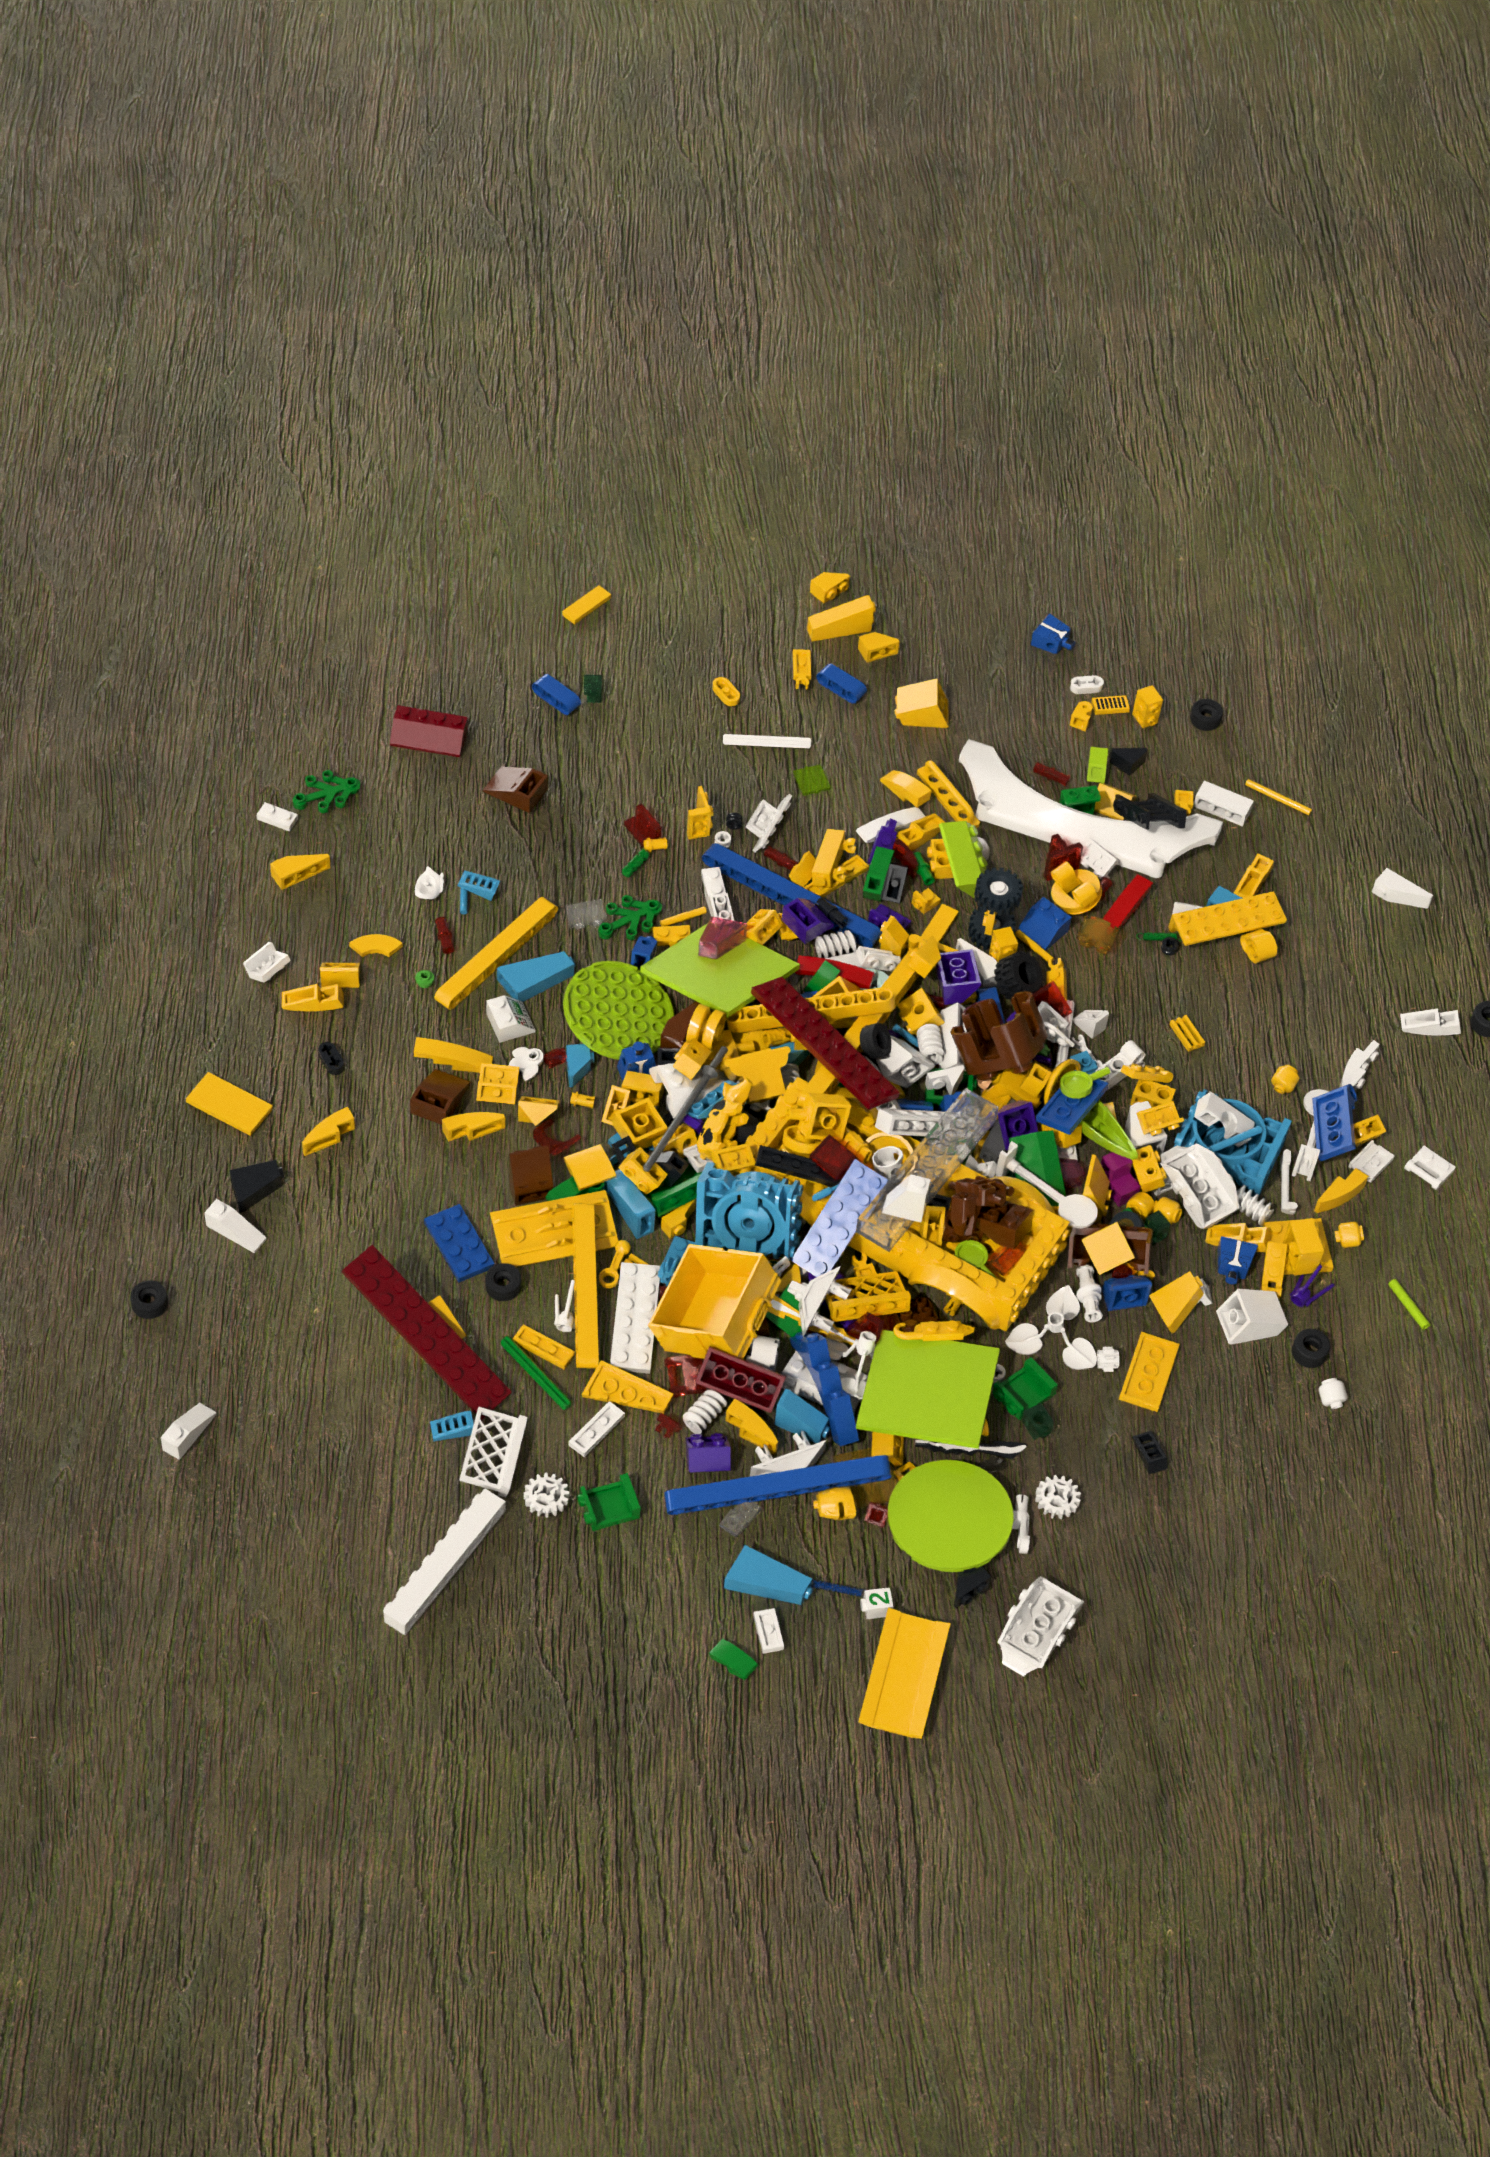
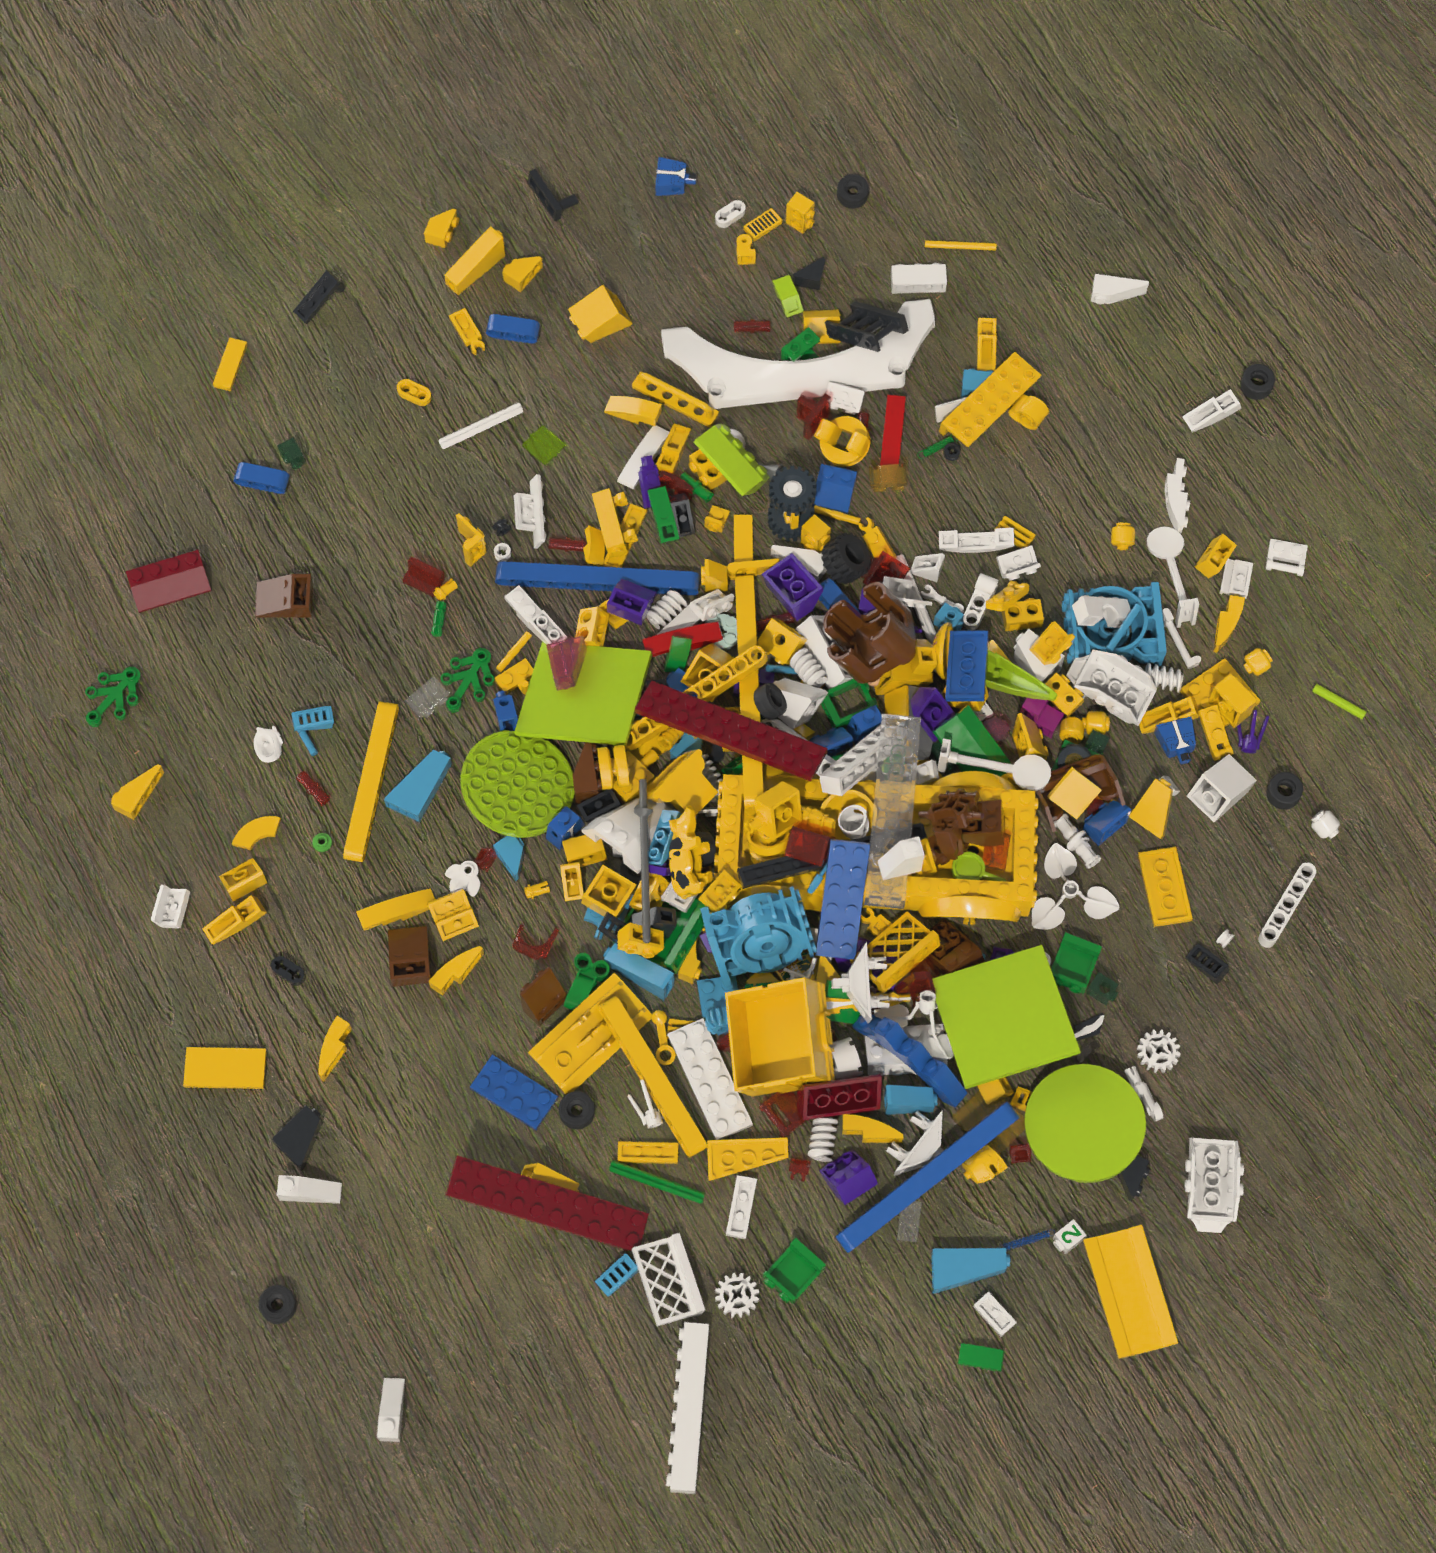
camera: 25 degrees left, 15 degrees up
(277, 816) = (82, 746): white plate -> none
(508, 1018) = (423, 842): white slope -> none
(535, 1109) = (504, 921): yellow slope -> none
(590, 1167) = (588, 958): yellow slope -> none
(691, 1058) = (619, 806): yellow brick -> none
(692, 585) = (318, 296): none -> black piece
(806, 1072) = (715, 753): none -> black tile
(831, 912) = (647, 581): black pin -> none
(883, 913) = (694, 556): dark purple bracket -> none
(925, 958) = (757, 584): yellow slope -> none
(934, 608) = (547, 198): none -> black piece
(935, 1331) = (978, 957): yellow plate -> none
(947, 1077) = (847, 697): white slope -> none
(1080, 1084) = (963, 645): lime piece -> none
(1107, 1359) = (1127, 896): white gear -> none
(1145, 1023) = (976, 542): none -> white slope
(1174, 1055) = (1018, 562): none -> white bracket
(1179, 1438) = (1225, 938): none -> white bush
(1184, 800) = (883, 294): yellow plate -> none
(1249, 1446) = (1283, 912): none -> white beam
(1332, 1107) = (1180, 549): blue hinge -> none

